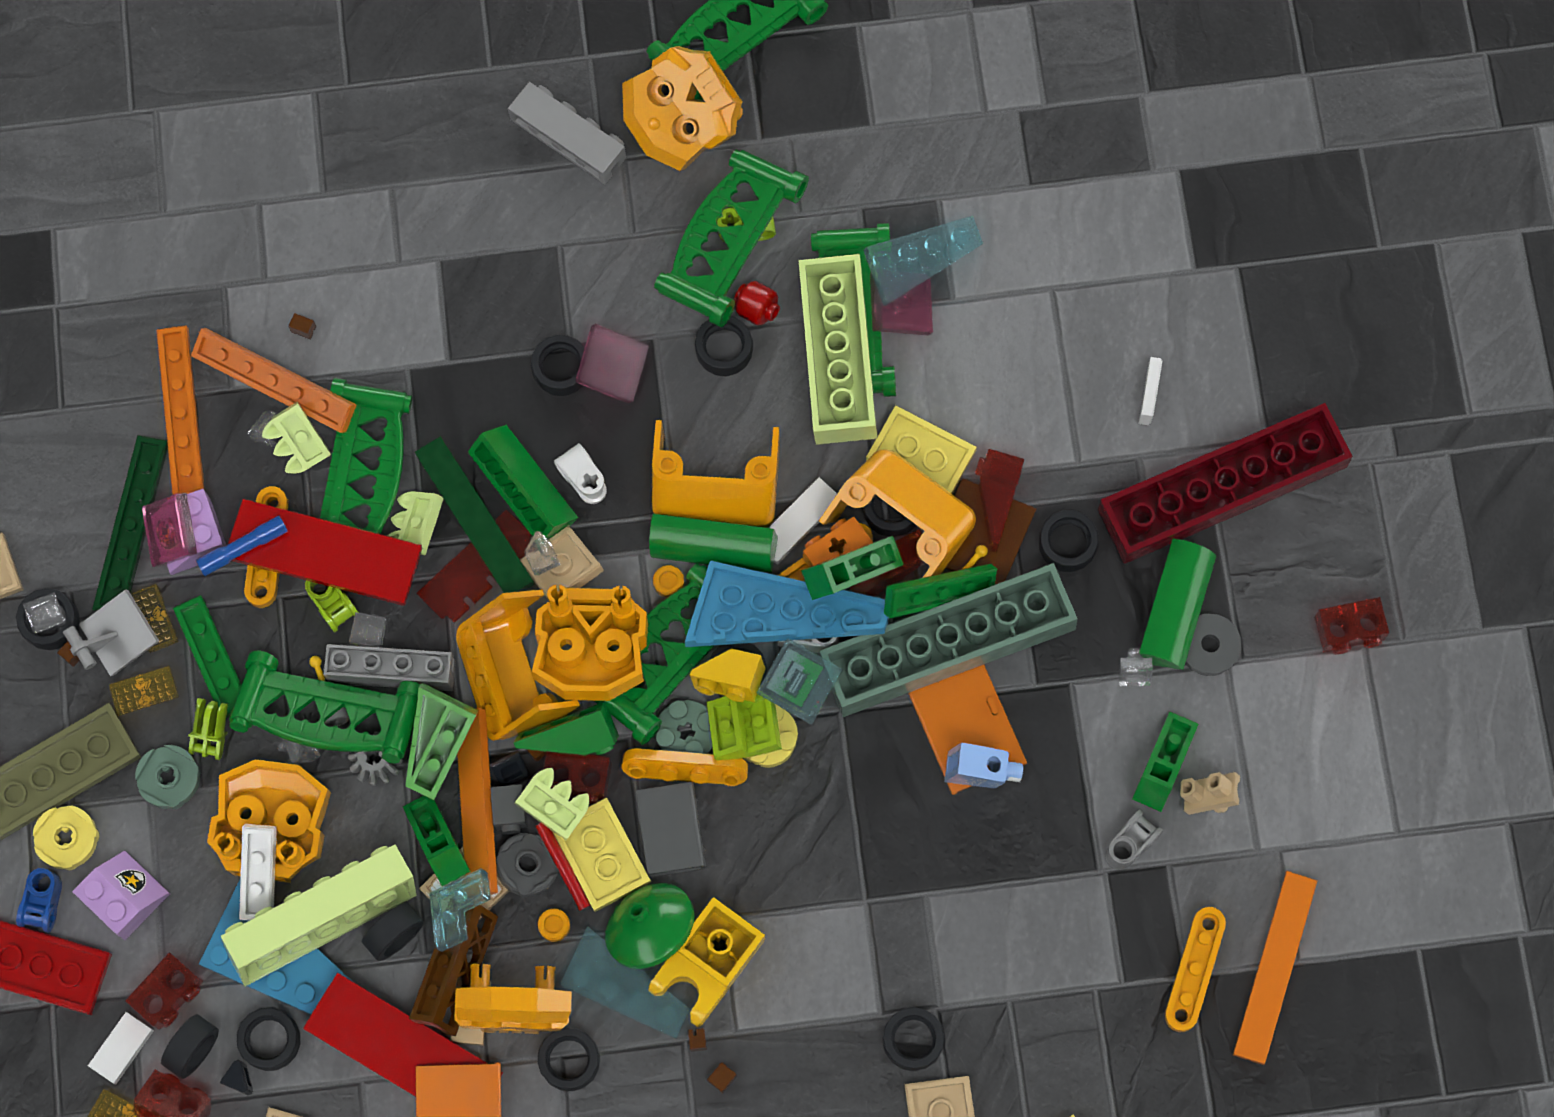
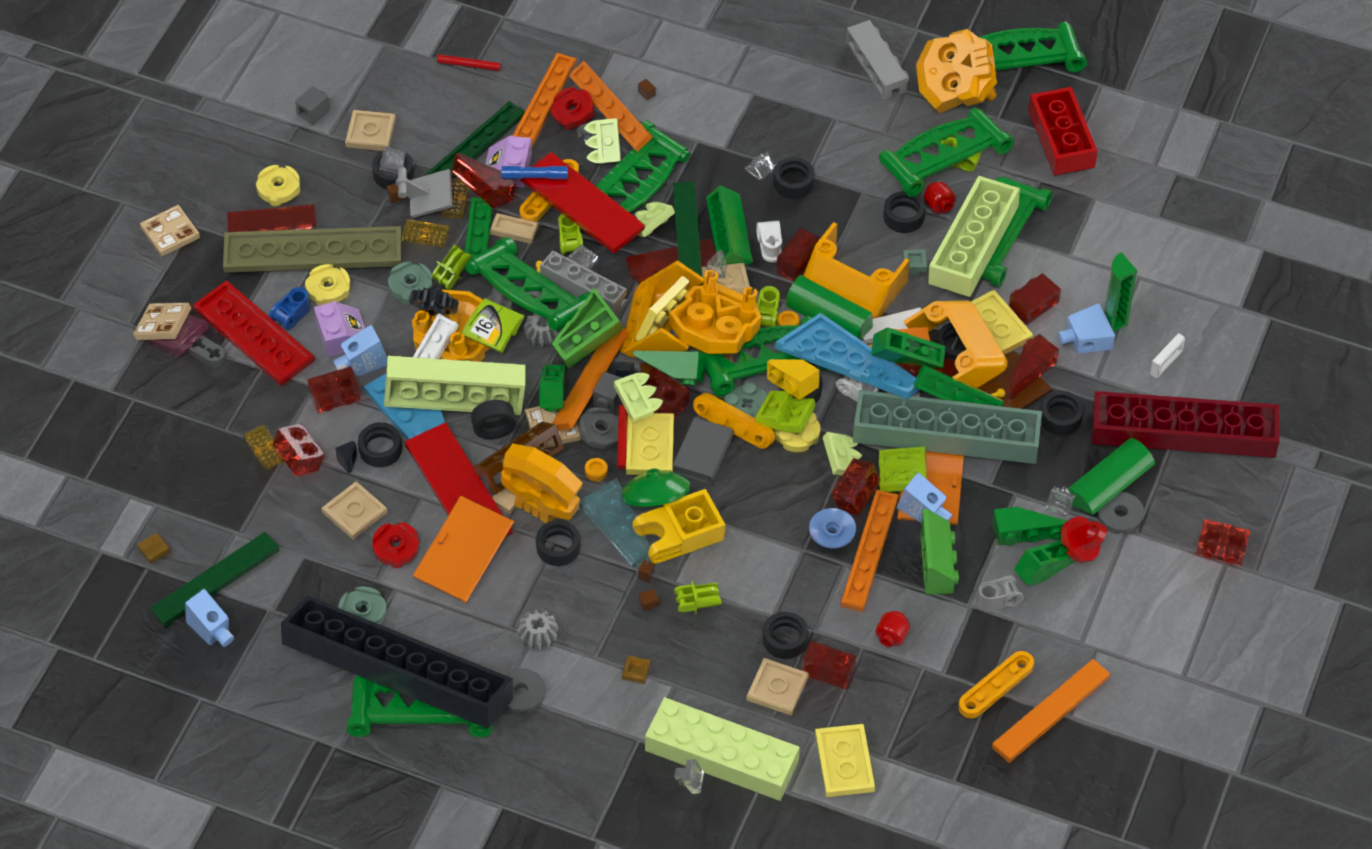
camera: 25 degrees right, 20 degrees down
(51, 401) = (481, 64): none -> red bar
(120, 1048) = (287, 409): white tile -> none
(169, 530) = (498, 148): clear pink tile -> none
(171, 922) = (362, 353): none -> light blue torso
(177, 580) = (484, 180): none -> clear red slope
(189, 1046) = (333, 430): black tyre -> none
(226, 813) = (433, 301): none -> black gear
(242, 402) = (576, 117): none -> red plate
(252, 624) = (514, 228): none -> tan tile
(315, 798) = (492, 325): none -> lime slope
(451, 903) = (538, 420): clear light blue tile -> none
(508, 367) = (761, 166): none -> clear slope
(519, 662) = (659, 312): none -> light yellow plate
(612, 363) = (826, 188): clear pink tile -> none
(630, 481) = (796, 255): none -> clear red brick
(639, 582) = (768, 309): none -> lime piece
(778, 414) = (917, 261): none -> sand green tile
(778, 1045) = (697, 596): none -> lime arm
(799, 681) = (835, 398): clear light blue tile -> none
(841, 743) = (840, 451): none -> yellowish green plate
(854, 107) = (1062, 131): none -> red brick
(885, 785) = (856, 486): none -> clear red brick
(889, 841) = (832, 520): none -> medium blue dish
(906, 314) = (1033, 238): clear pink tile -> none
(914, 258) = (1059, 215): clear light blue wing -> none
(924, 725) = (900, 467): none -> lime slope
(945, 860) = (869, 550): none -> orange tile
(949, 391) = (1034, 298): none -> clear red brick
(989, 1055) = (829, 665): none -> clear red brick
(1034, 828) = (938, 554): none -> bright green slope
(1036, 962) = (892, 628): none -> red head
(1038, 405) = (1088, 331): none -> light blue torso
(1060, 348) = (1120, 292): none -> green brick
(1106, 729) = (1023, 525): none -> green slope
(1192, 713) = (1083, 538): none -> red tile
(1210, 793) = (1069, 590): tan hips -> none

